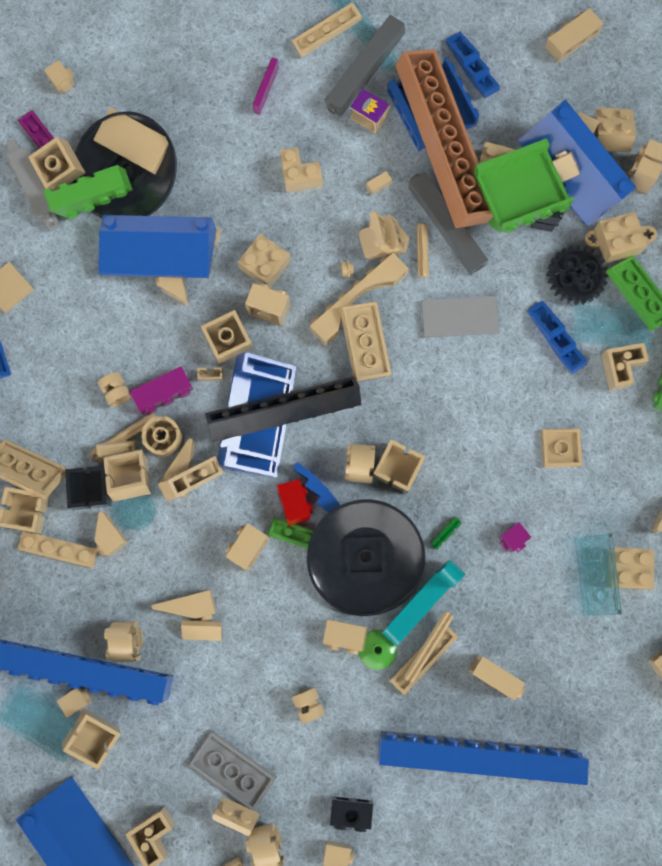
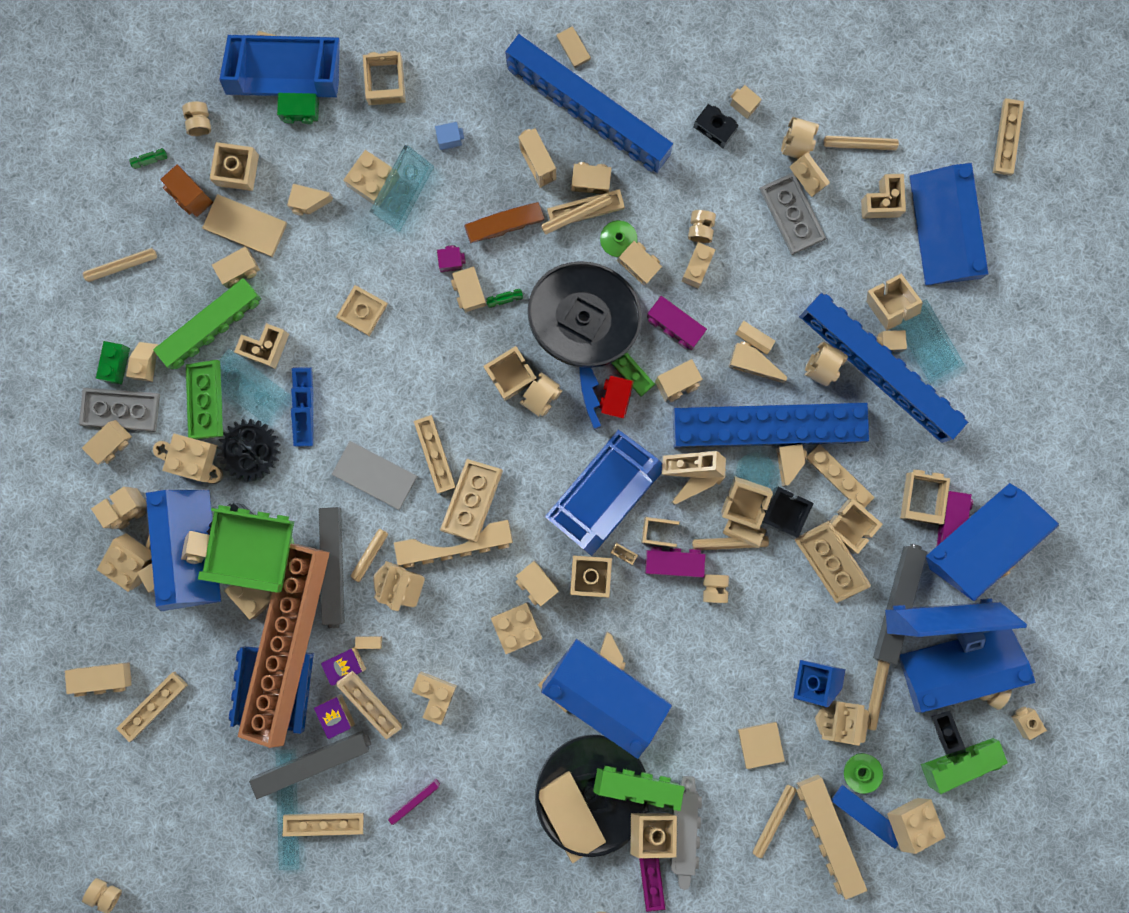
camera: 150 degrees left, 5 degrees up
(142, 558) = (770, 425): none -> blue brick
(152, 441) = (707, 525): tan brick -> none
(184, 399) = (645, 526): none -> tan piece
(280, 599) = (675, 323): none -> magenta brick
(283, 409) = (579, 480): black brick -> none
(290, 666) = (698, 265): none -> tan brick
(346, 269) = (447, 578): tan plate -> none
(347, 133) = (369, 705): none -> tan plate
(386, 151) = (343, 664): none -> dark purple piece
(421, 362) = (434, 454): none -> tan plate
(425, 599) = (552, 254): teal beam -> none
(436, 689) = (591, 178): none -> tan brick
(472, 65) = (210, 707): blue slope -> none
(481, 520) = (469, 289): none -> tan brick
(488, 600) = (503, 222): none -> dark orange slope
(517, 39) = (152, 706): none -> tan plate
(530, 810) = (573, 47): none -> tan tile
(588, 651) = (449, 135): none -> medium blue brick

